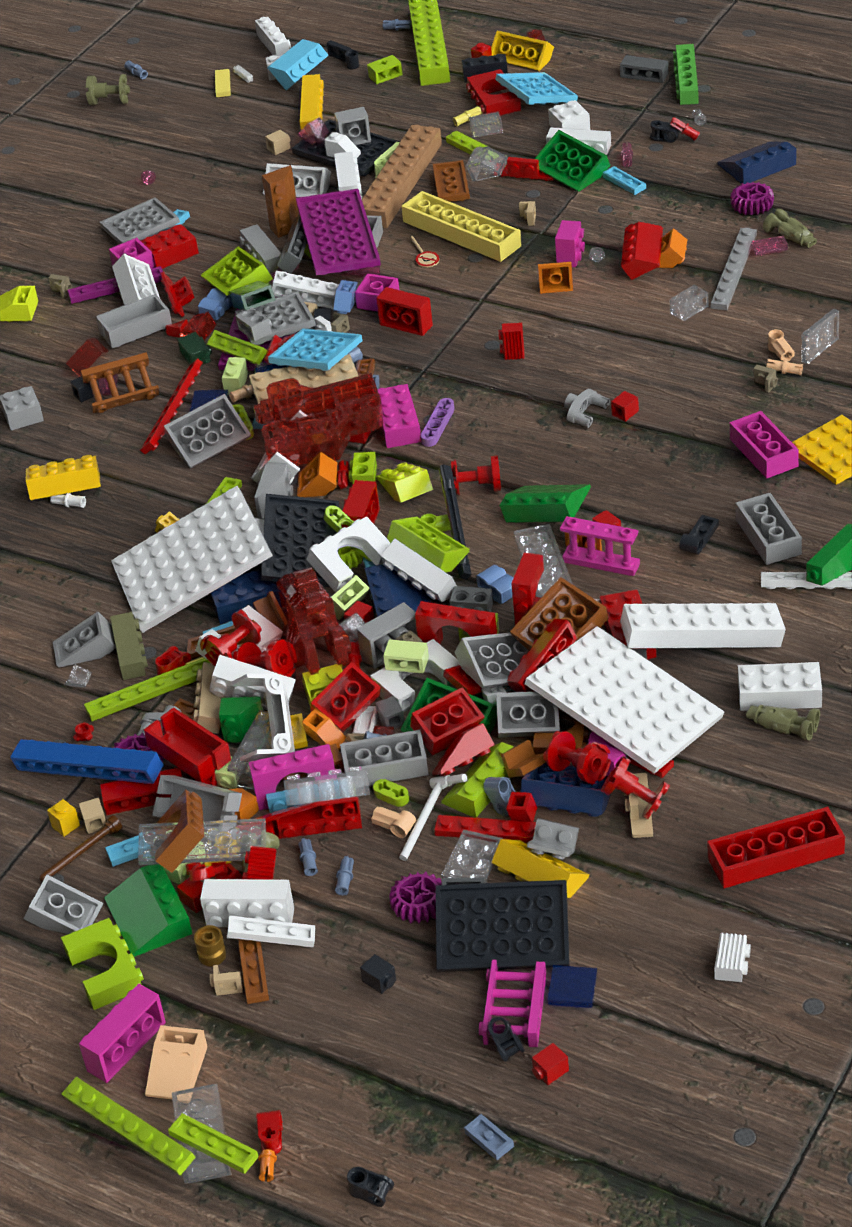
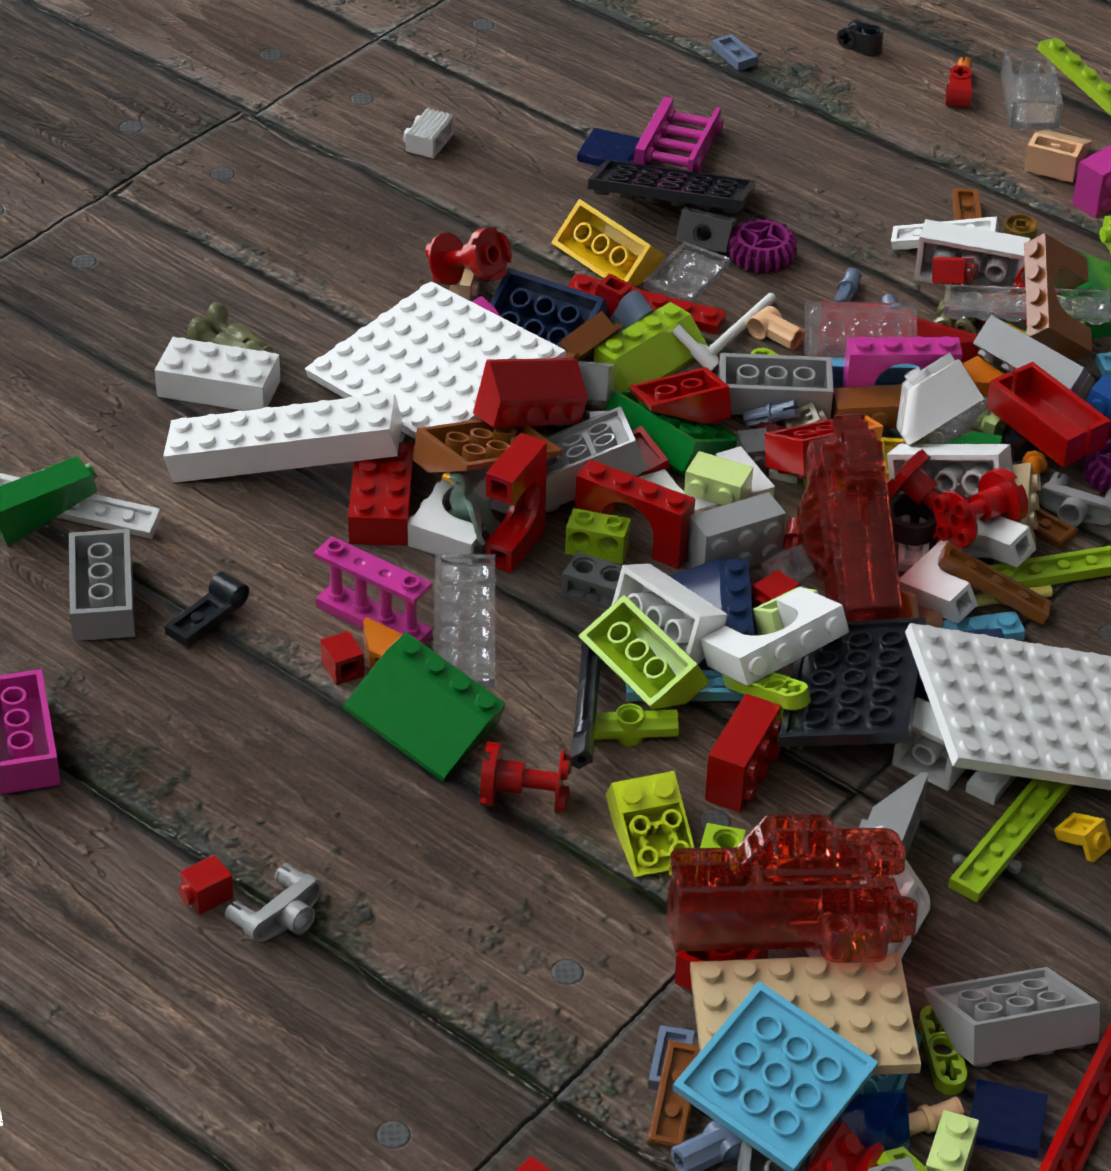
camera: 175 degrees left, 0 degrees up
(171, 660) = (1074, 588): red piece -> none
(213, 1143) = (1018, 49): lime plate -> none
(226, 982) = (999, 206): tan bracket -> none
(378, 974) = (823, 187): black brick -> none
(399, 417) = (633, 965): dark pink brick -> none
(434, 421) = (555, 948): medium lavender beam -> none
(466, 745) = (667, 353): slope -> none
(497, 580) = (547, 602): medium blue brick -> none
(505, 1039) = (696, 102): black piece -> none
(512, 341) = (358, 1073): red brick -> none
(550, 1064) = (654, 86): red brick -> none
(554, 838) = (588, 251): light grey bracket -> none
(590, 761) = (513, 289): red piece -> none
(776, 847) = (327, 205): red brick -> none

